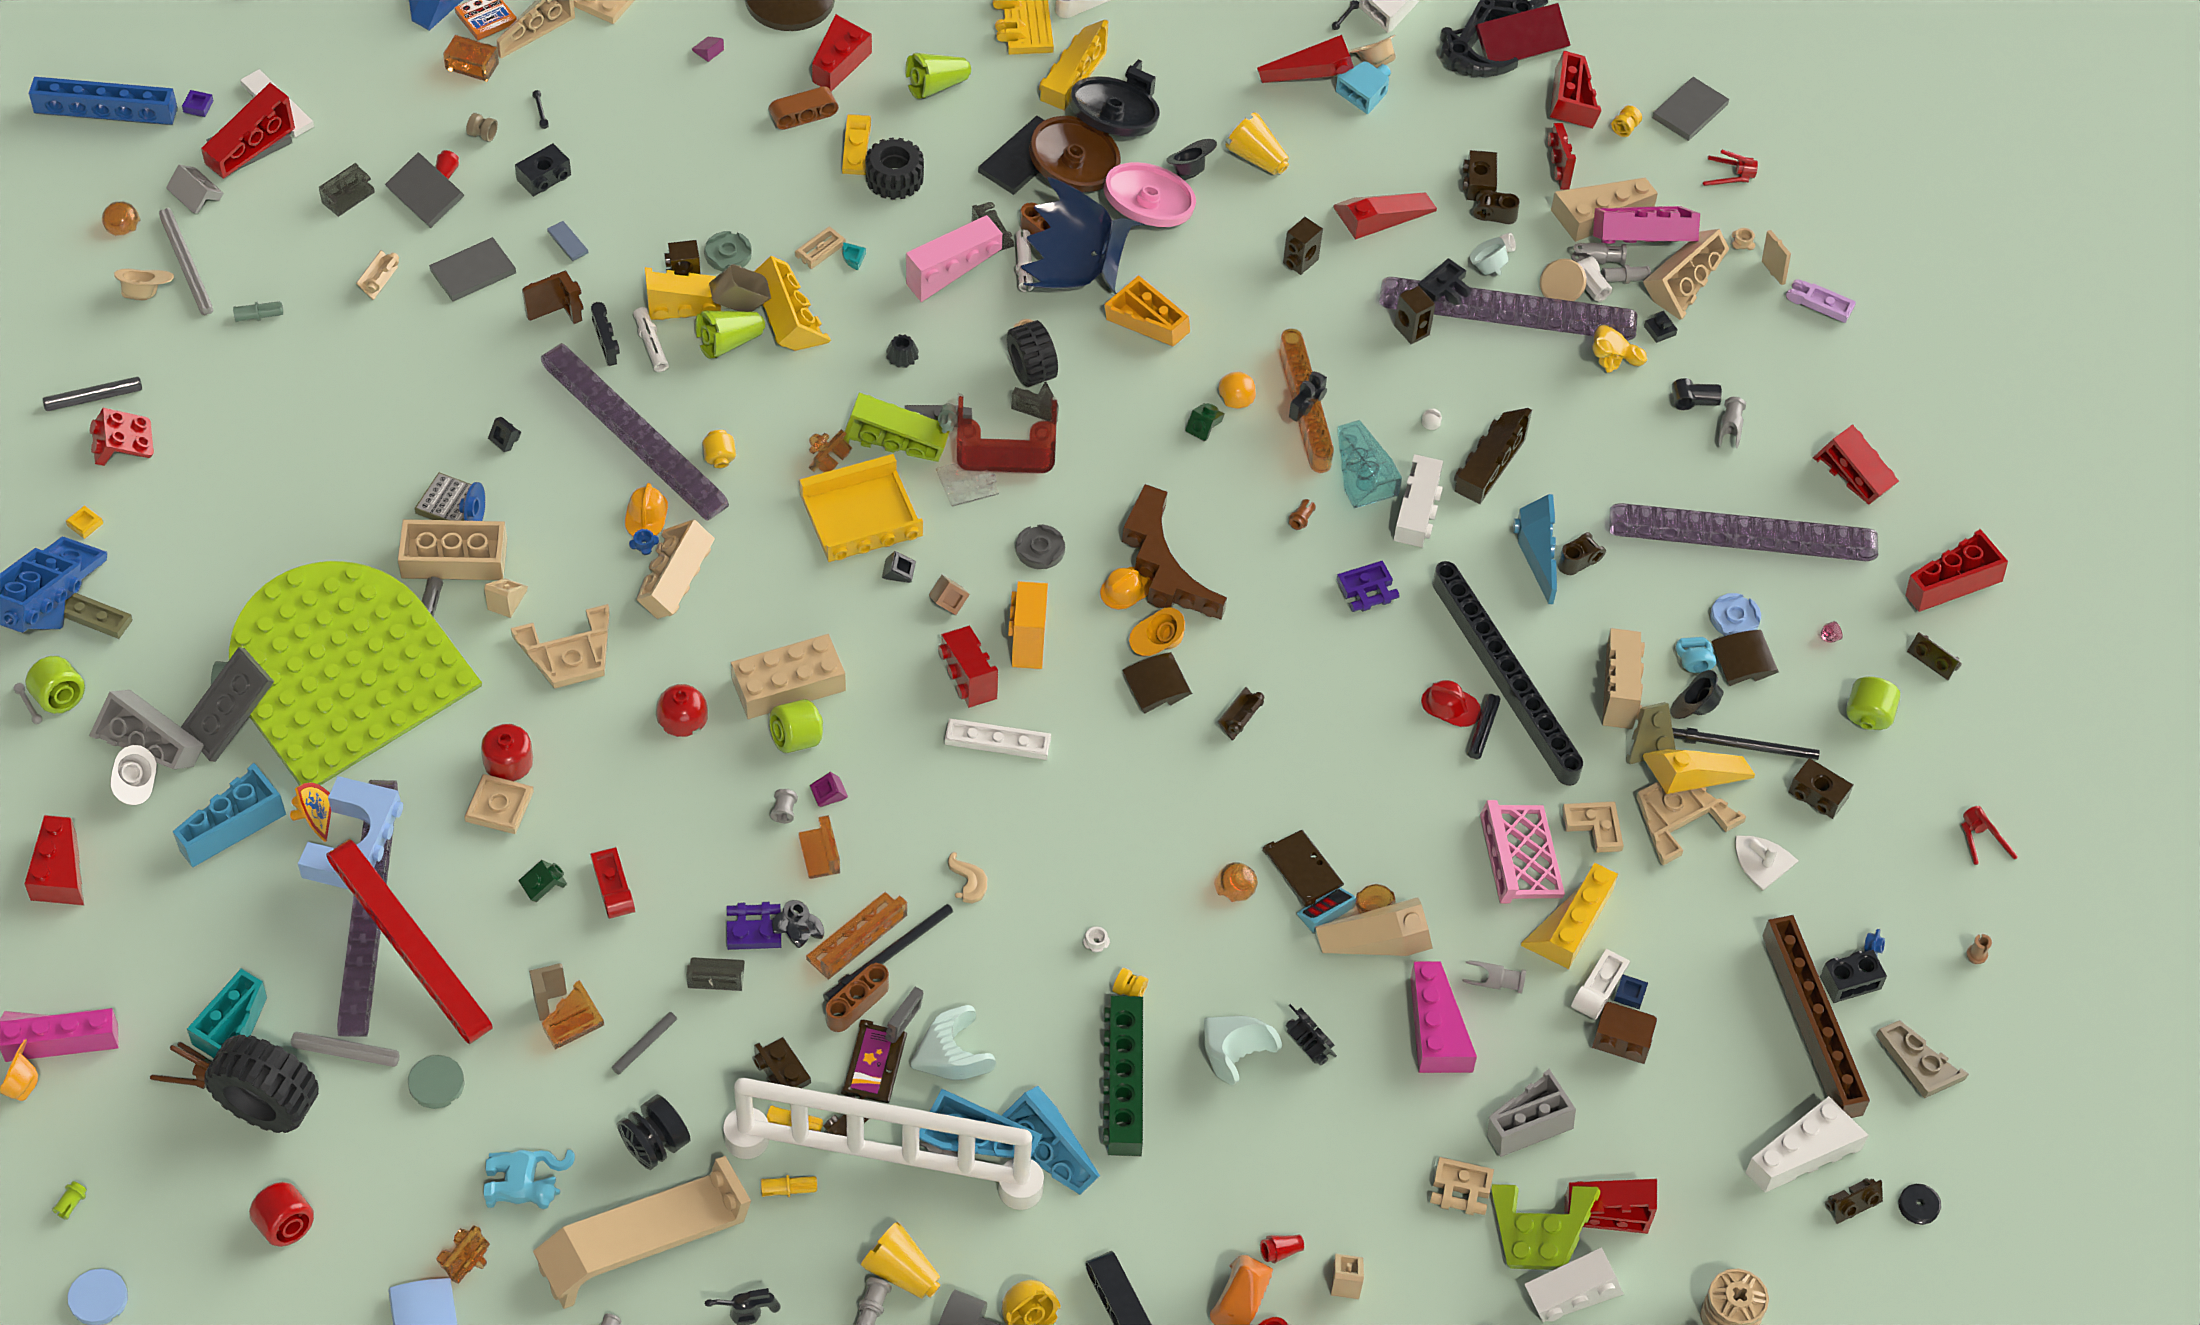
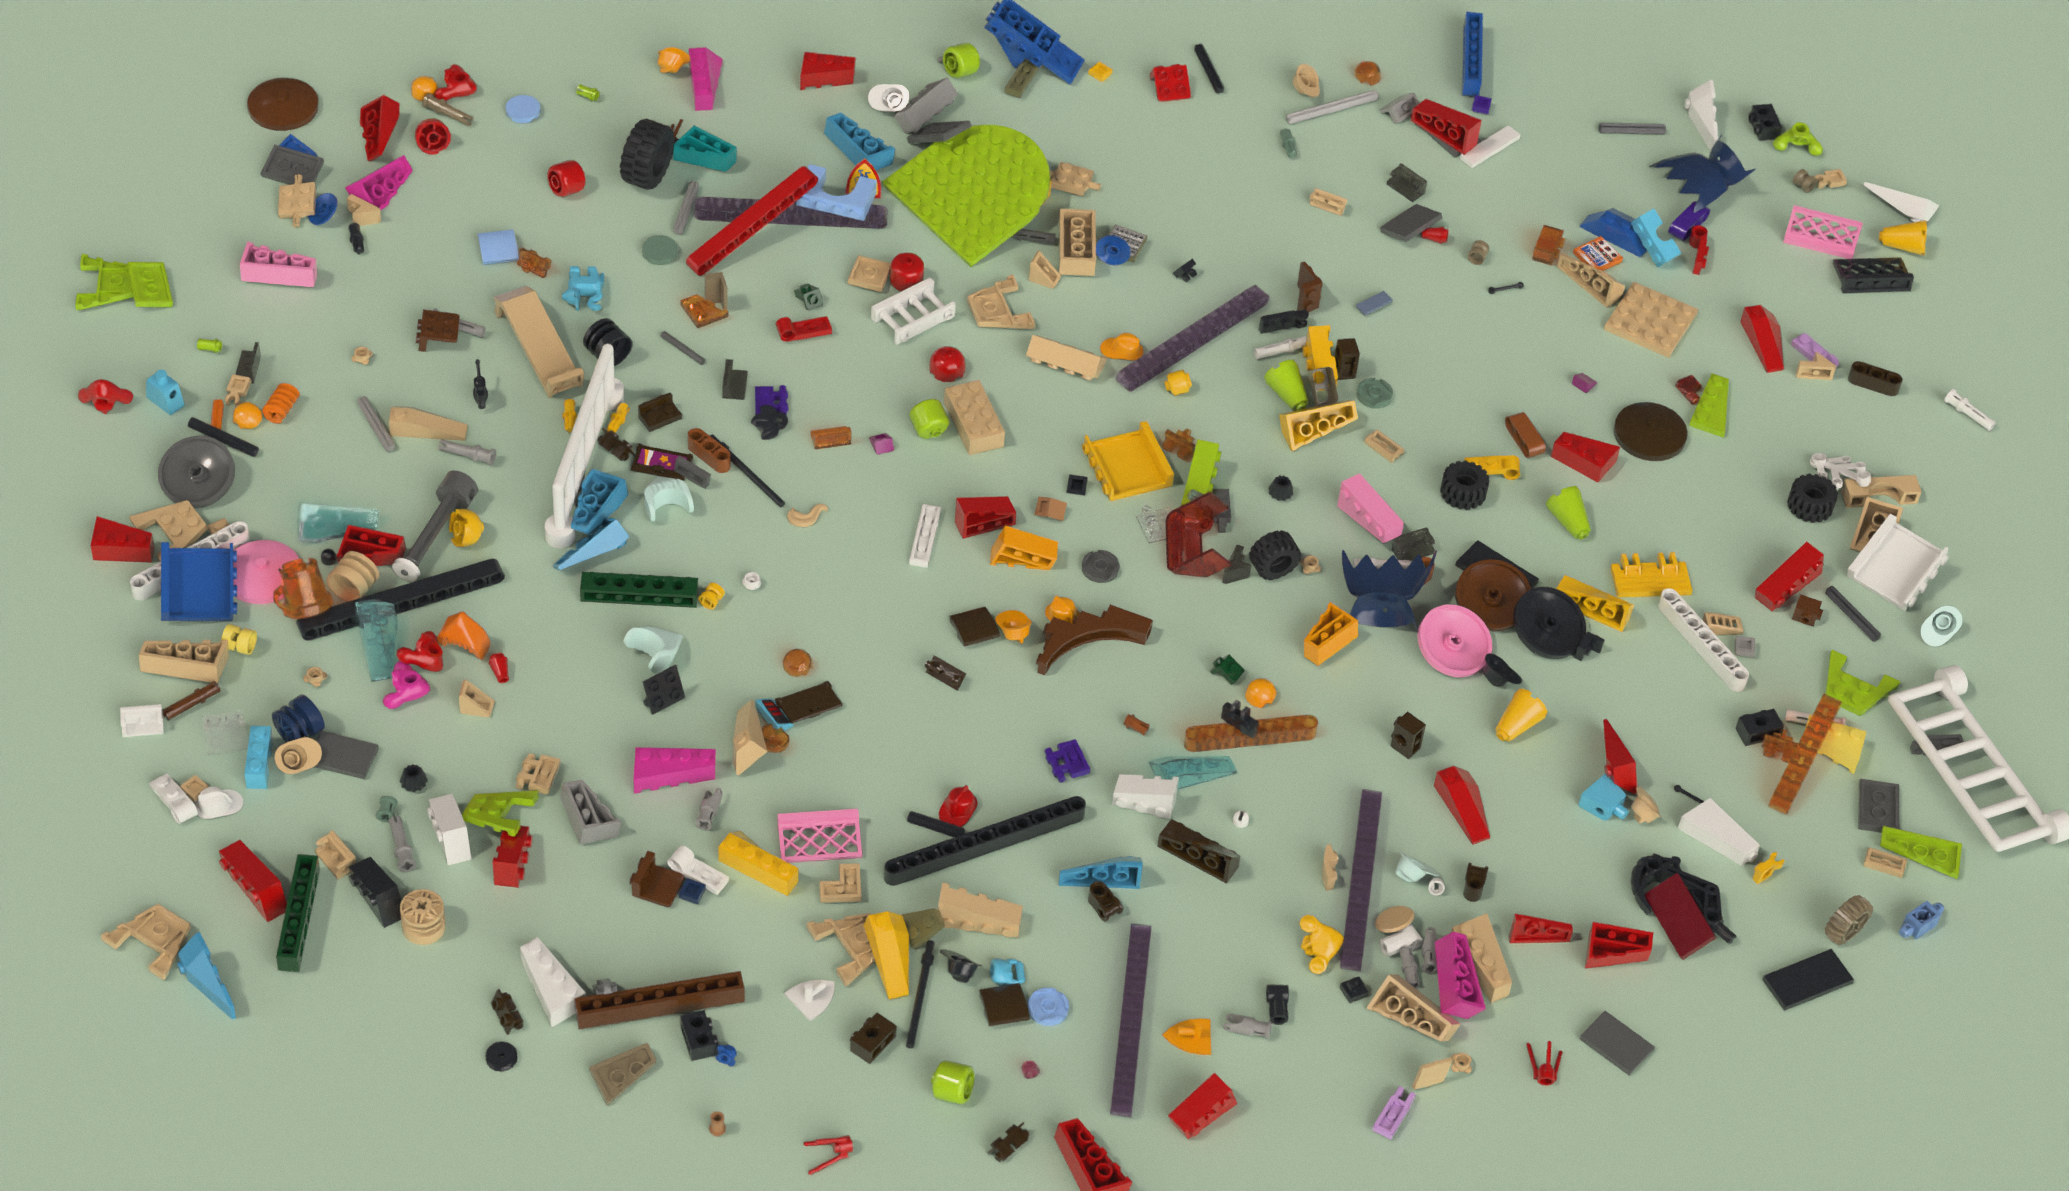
camera: 90 degrees right, 5 degrees down
(312, 549) = (1073, 179): none -> tan plate
(472, 269) = (1341, 253): dark grey tile -> none
(543, 169) = (1439, 286): black brick -> none
(567, 769) = (906, 298): none -> white fence
(647, 536) = (1094, 345): blue plate -> none
(784, 806) = (865, 415): light grey bush -> none
(853, 255) = (1378, 465): teal tile -> none
(859, 939) = (760, 454): clear orange fence -> none
(902, 1263) = (504, 464): yellow cone -> none
(1414, 314) = (1340, 804): dark brown brick -> none
(1442, 281) = (1375, 822): black hinge -> none
(1481, 173) = (1509, 873): dark brown brick -> none
(1492, 338) = (1328, 868): none -> tan slope
(1626, 121) = (1589, 987): yellow wheel -> none
(1749, 480) = (1191, 1036): none -> light orange shield
(1814, 1075) = (604, 986): none -> dark grey hinge

